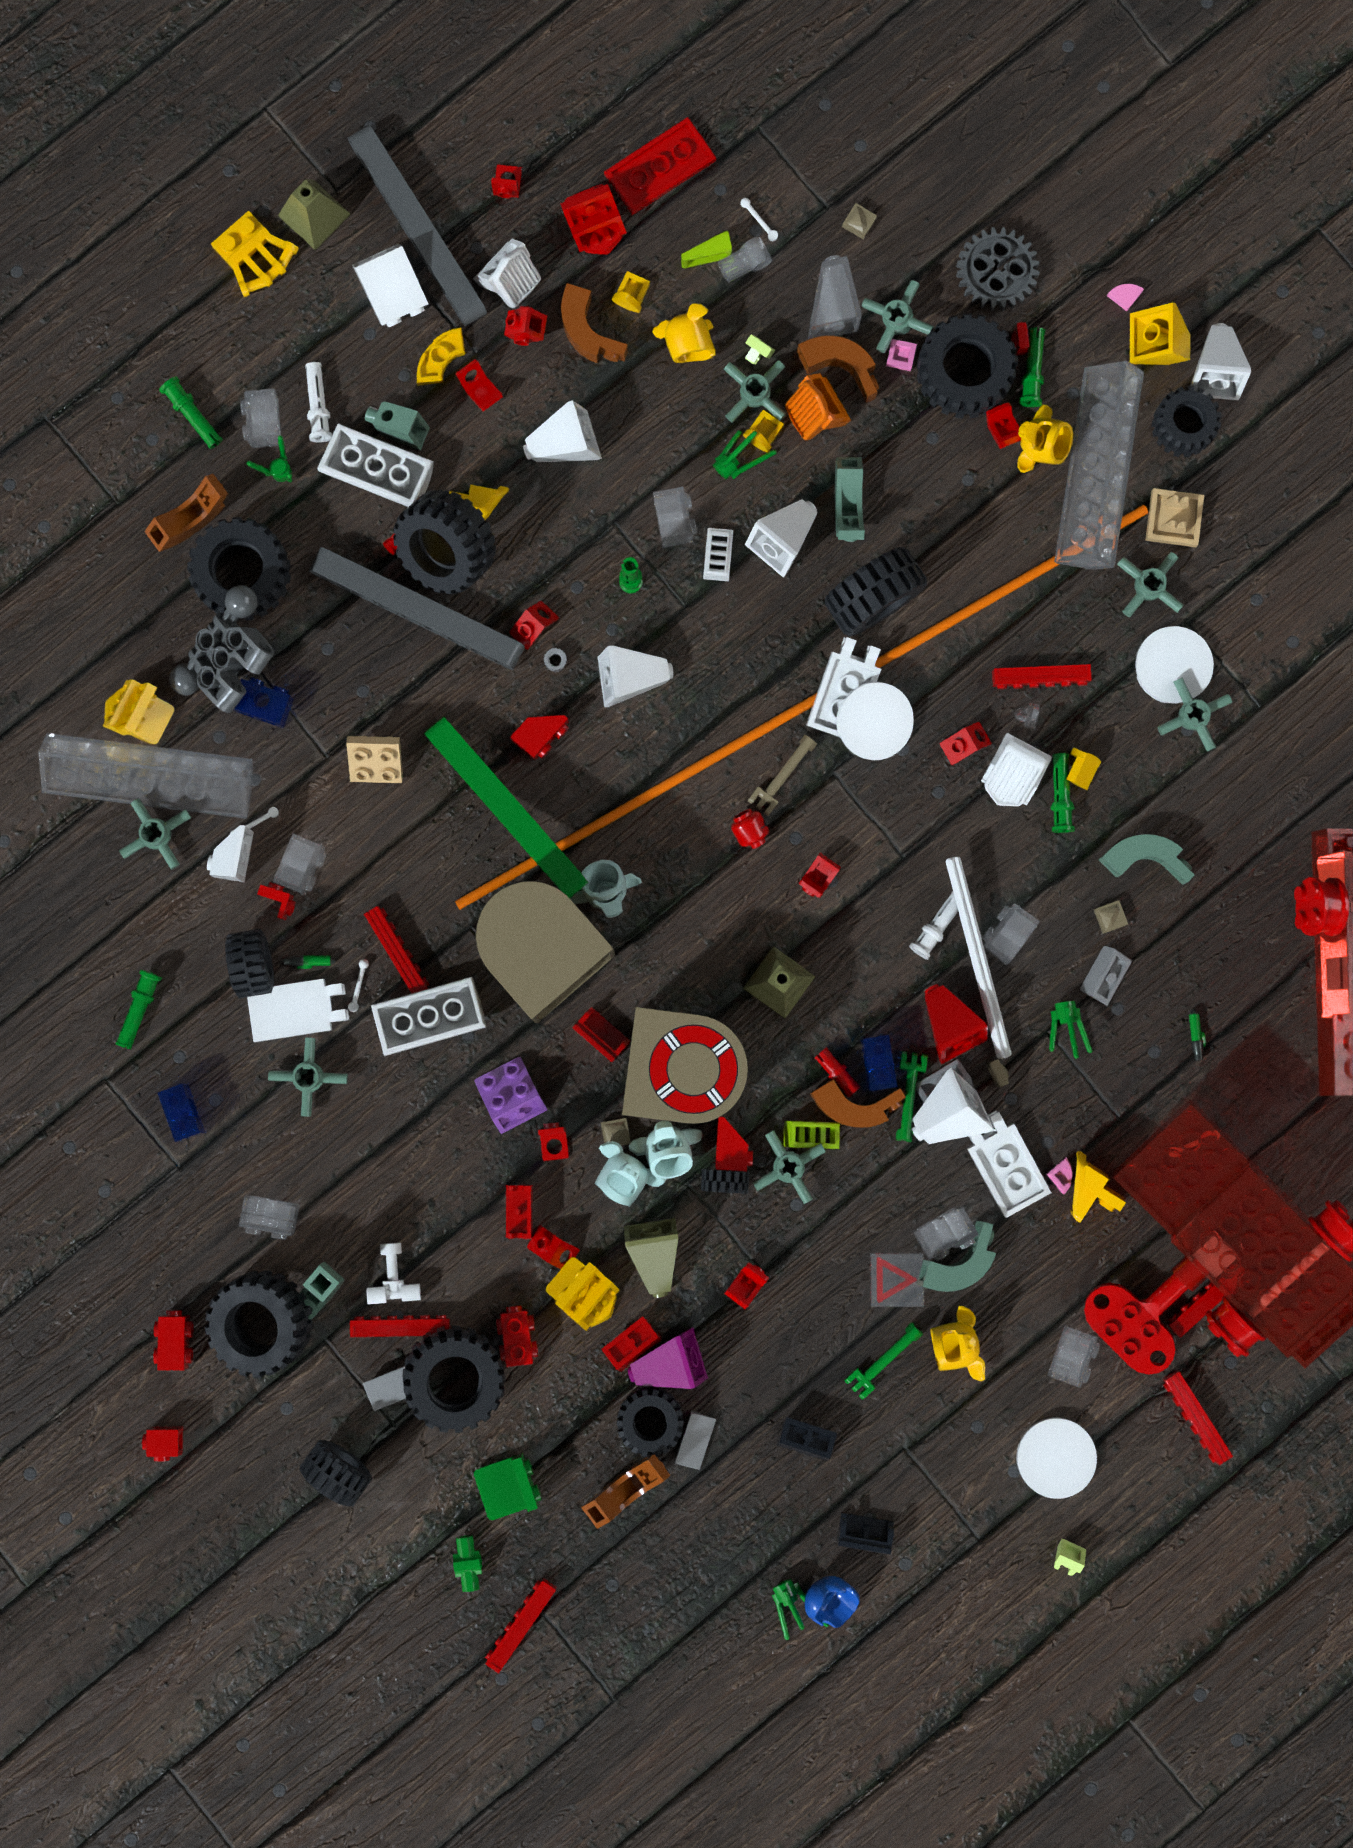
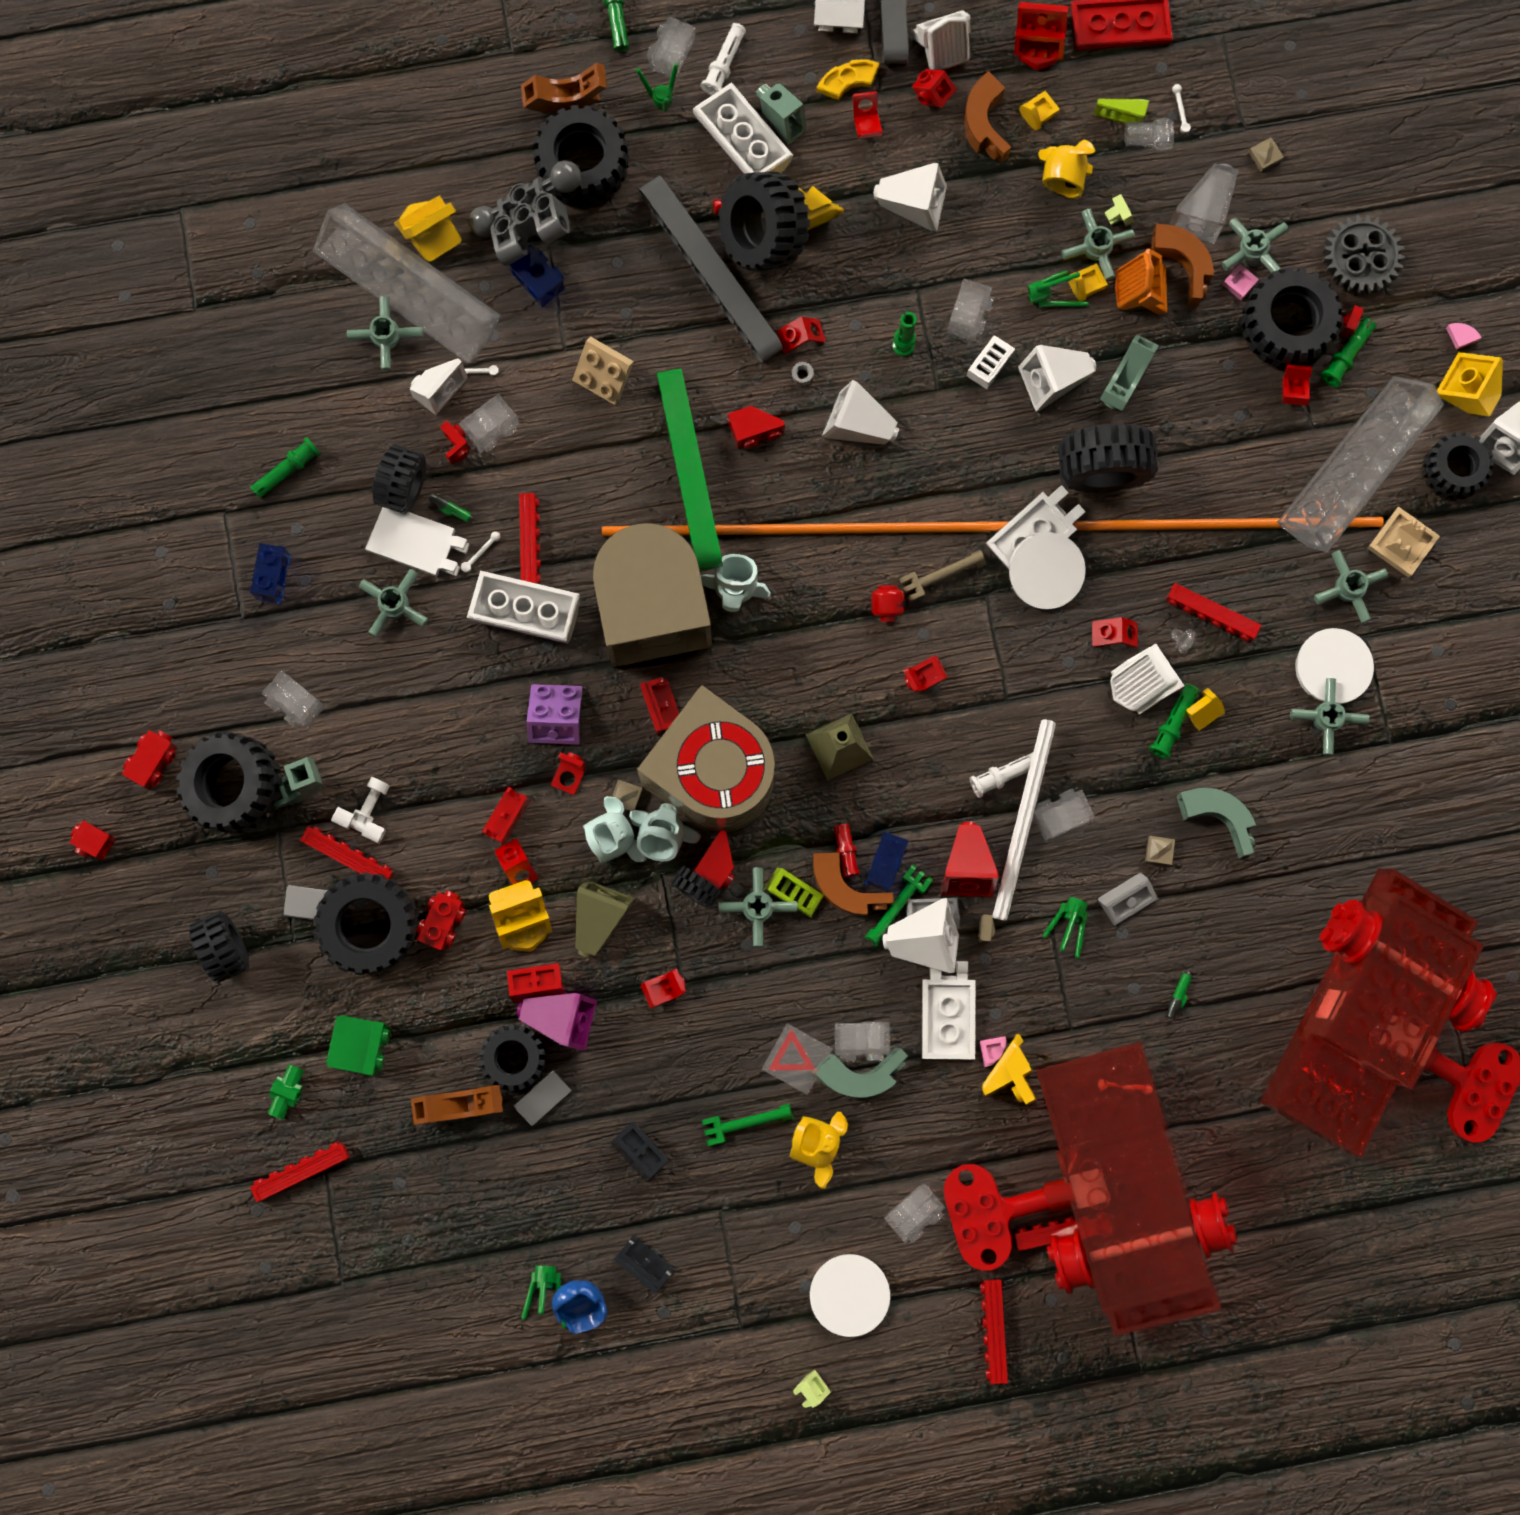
camera: 30 degrees right, 5 degrees down
(1044, 440) = (1324, 415): yellow piece -> none

